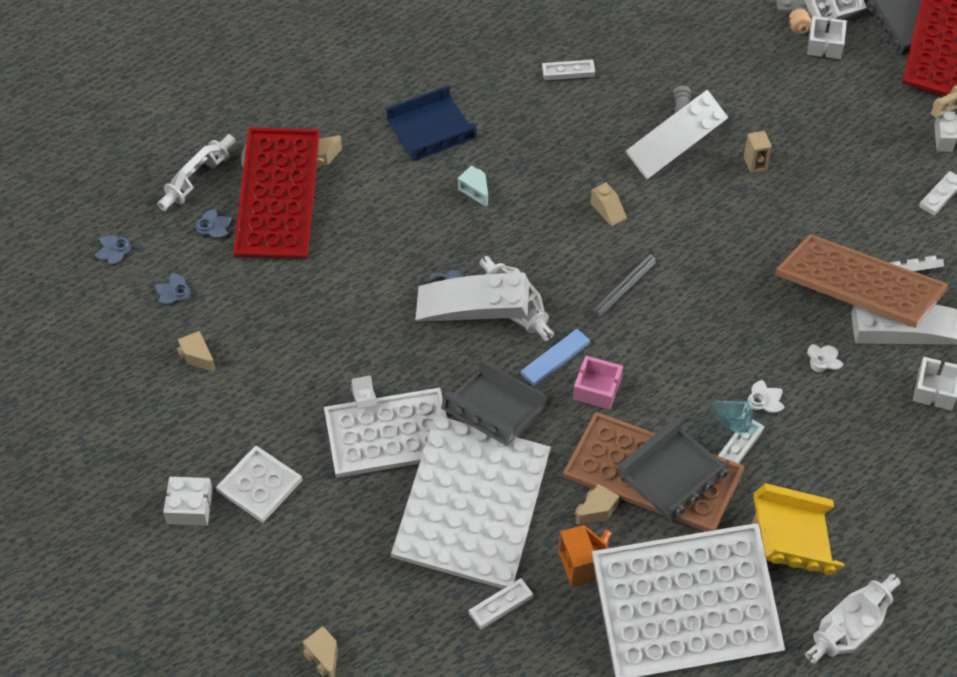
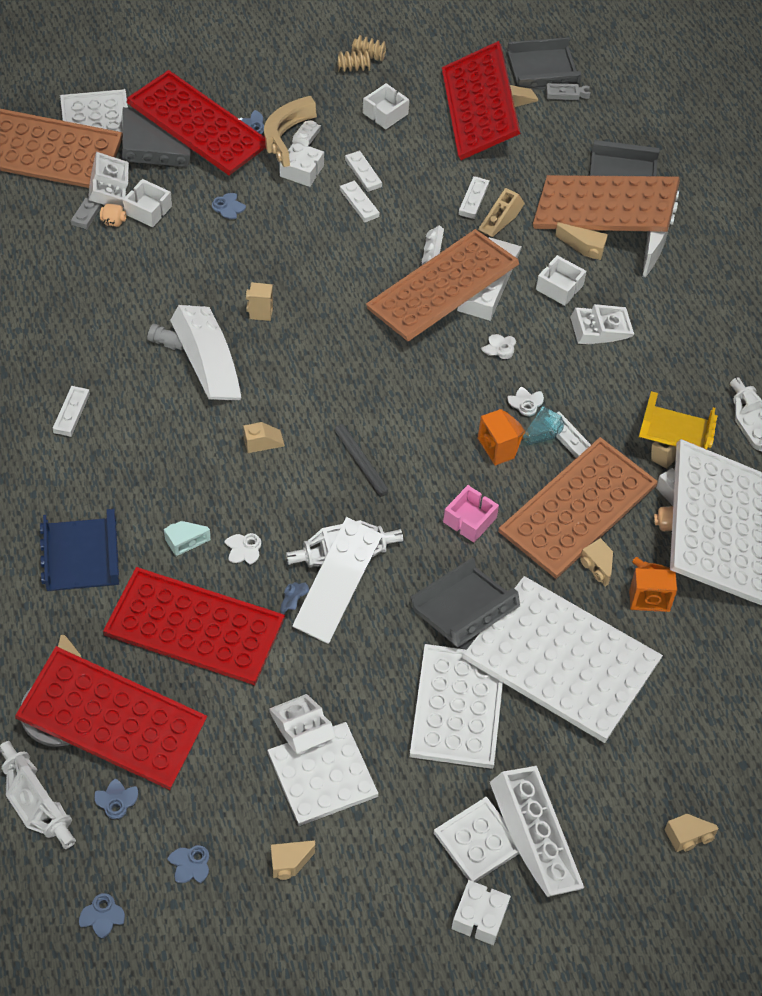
camera: 75 degrees left, 0 degrees up
(275, 521) = (536, 830): none -> white slope
(285, 353) = (323, 776): none -> white plate
(322, 320) = (302, 723): none -> white slope
(363, 392) = (409, 712): white slope -> none
(391, 222) = (194, 625): none -> red plate
(483, 231) = (242, 550): none -> white plate
(500, 603) = (676, 669): white plate -> none
(555, 357) = (421, 541): light blue tile -> none
(672, 470) = (591, 488): dark grey panel -> none
(700, 381) = (500, 436): none -> orange piece
(868, 97) = (228, 206): none -> sand blue plate
(904, 438) = (601, 324): none -> white slope

